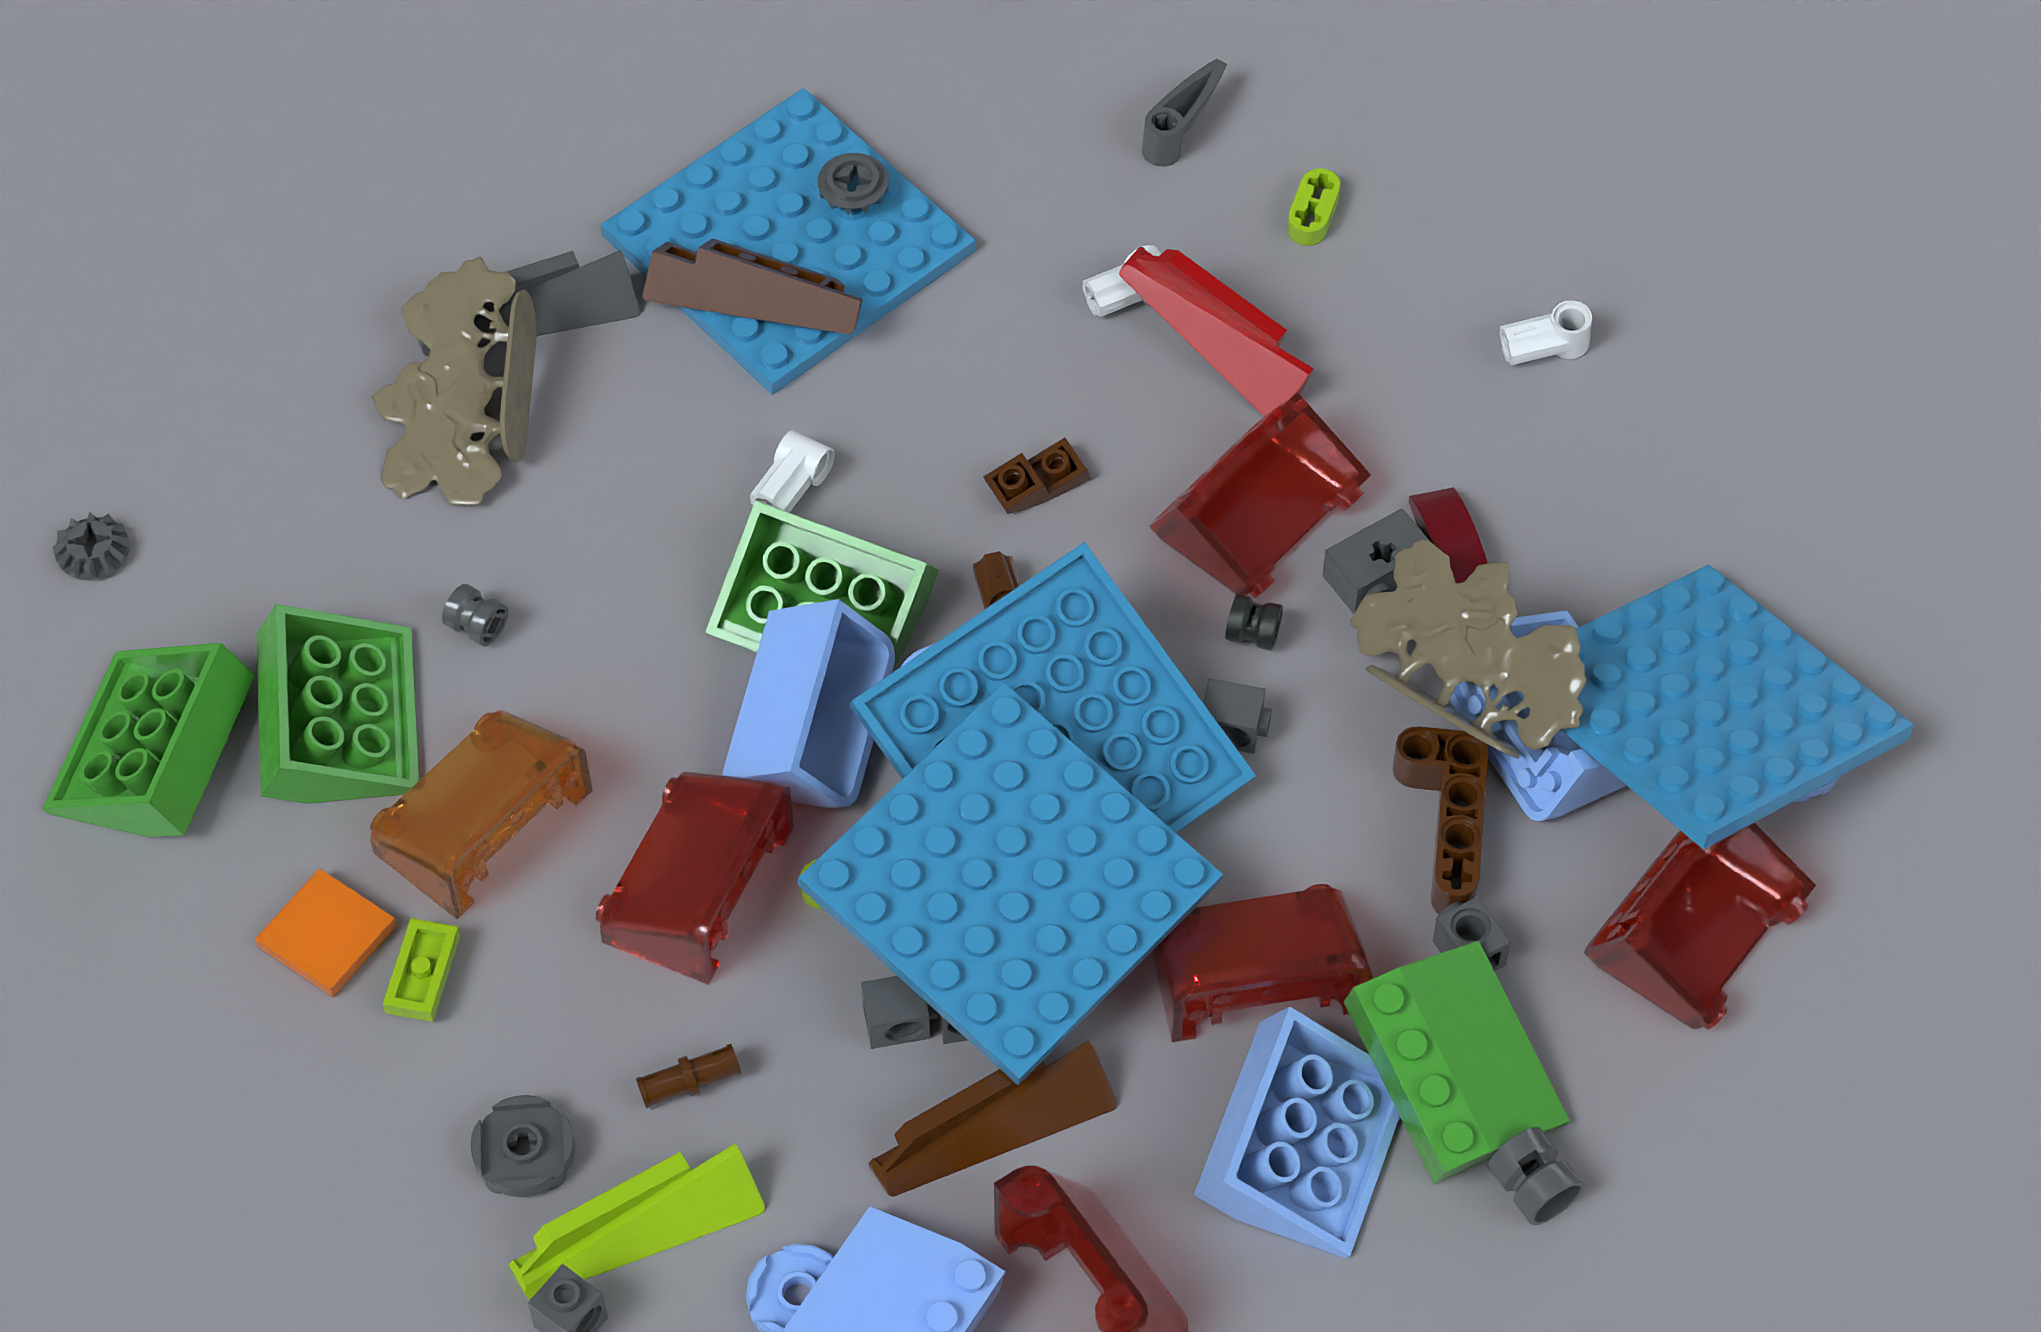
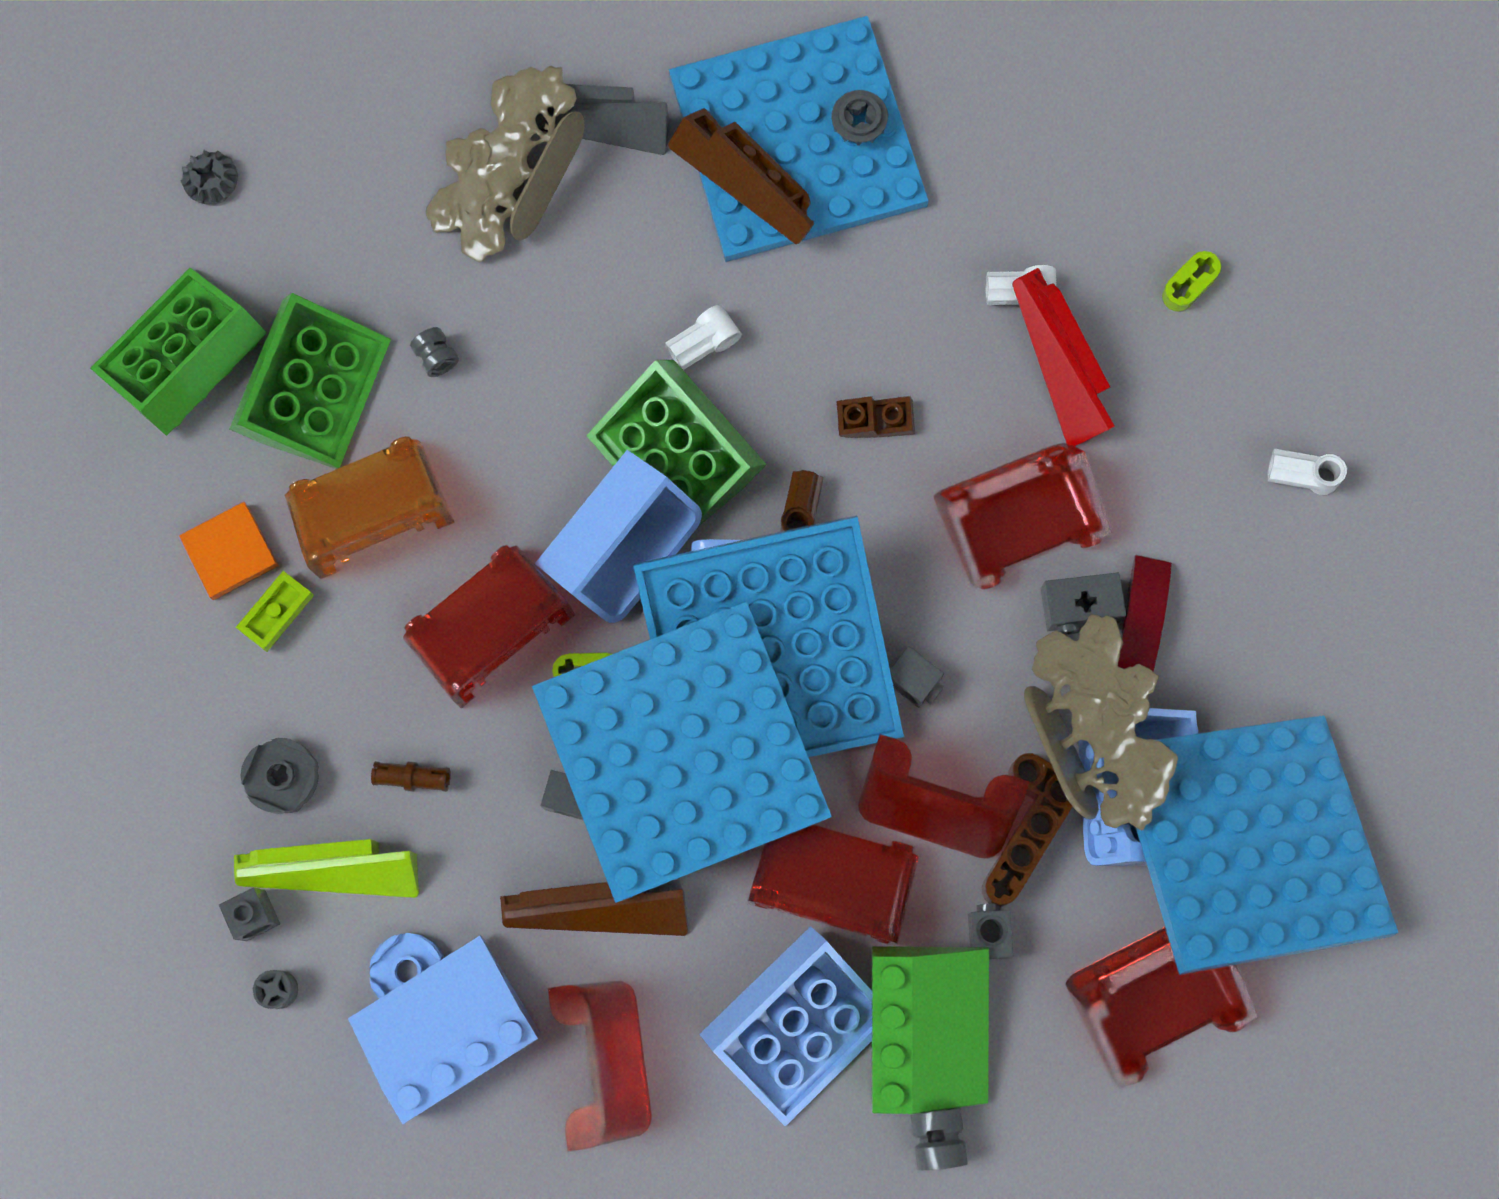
camera: 30 degrees right, 20 degrees up
(1177, 113) = (1130, 158): dark grey piece -> none
(1264, 624) = (974, 615): pearl dark grey wheel -> none
(1331, 826) = (936, 812): none -> clear red windscreen

